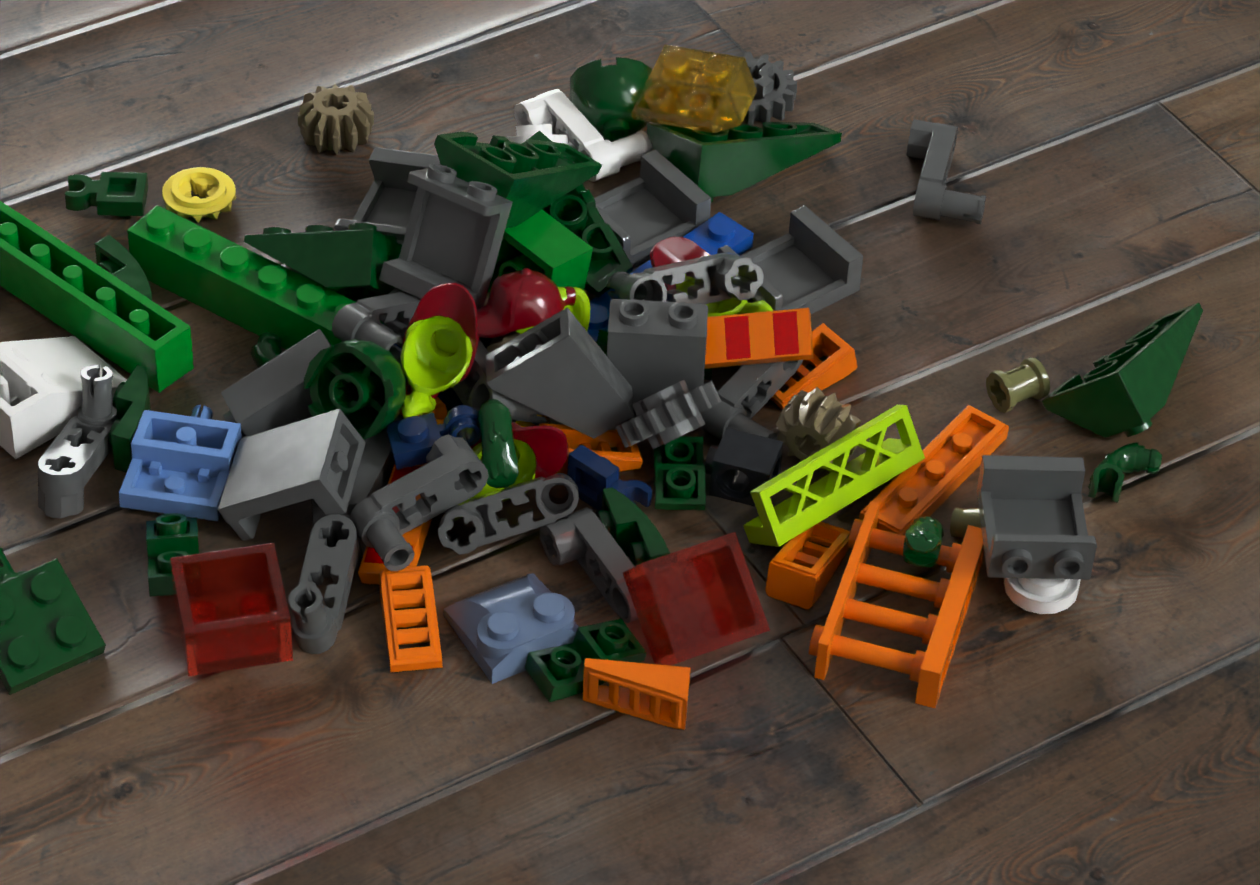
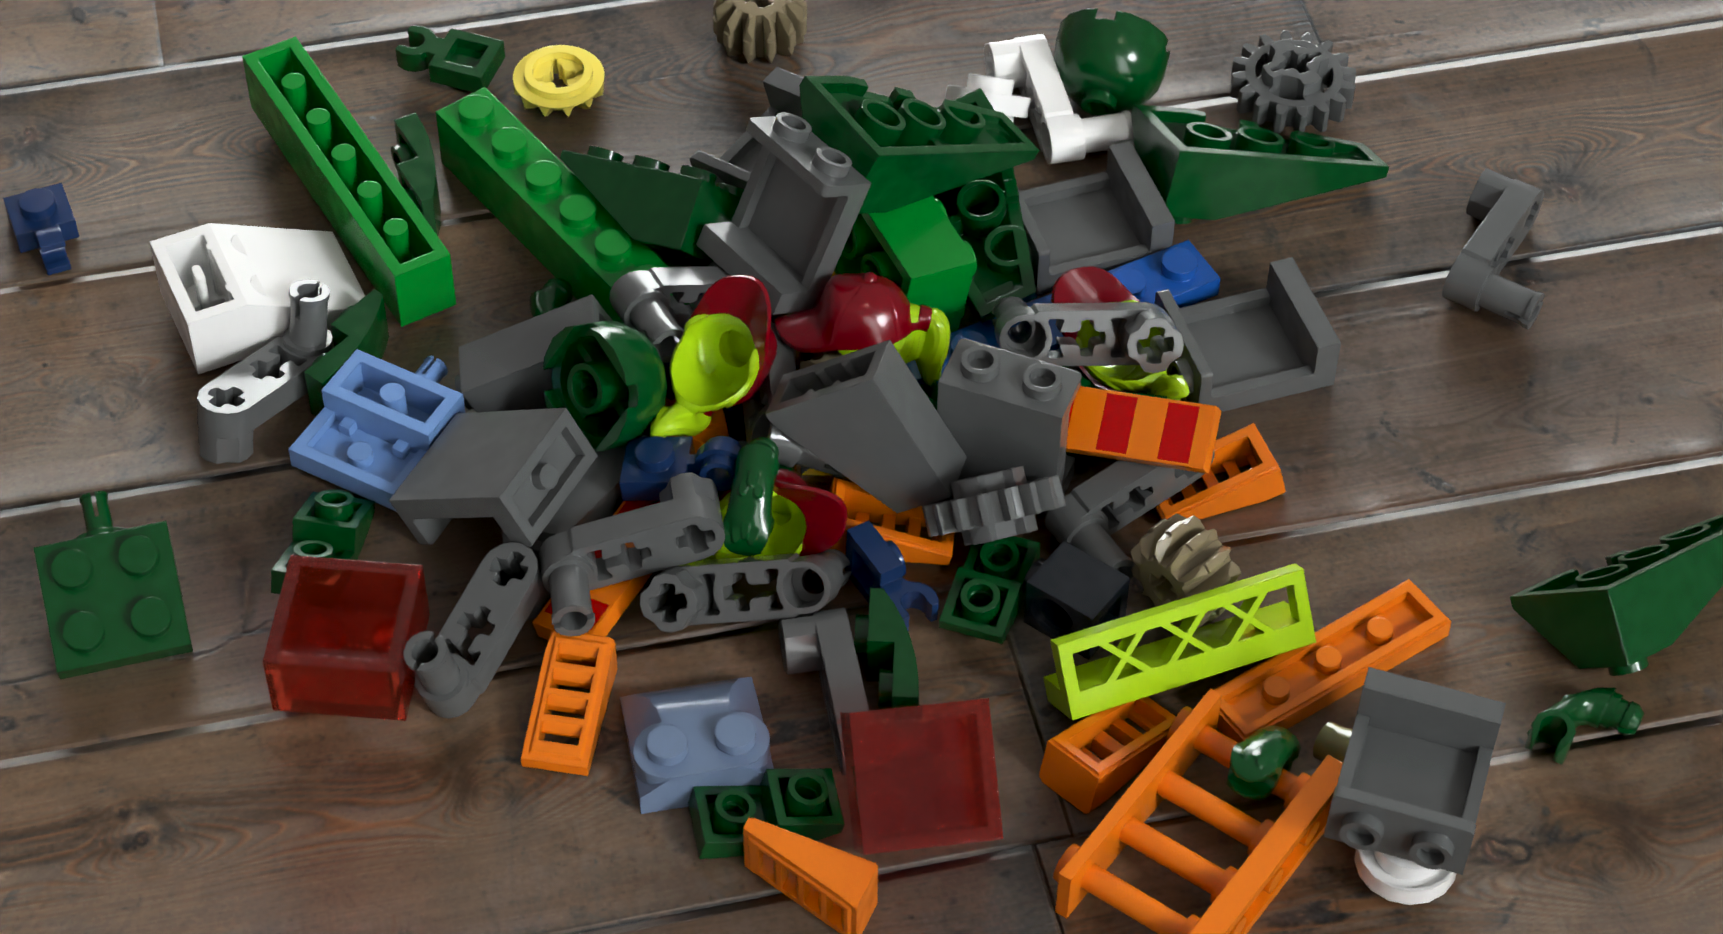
camera: 20 degrees right, 5 degrees up
(696, 90) = (1209, 75): clear yellow slope -> none
(1018, 384) = (1485, 566): olive bush -> none

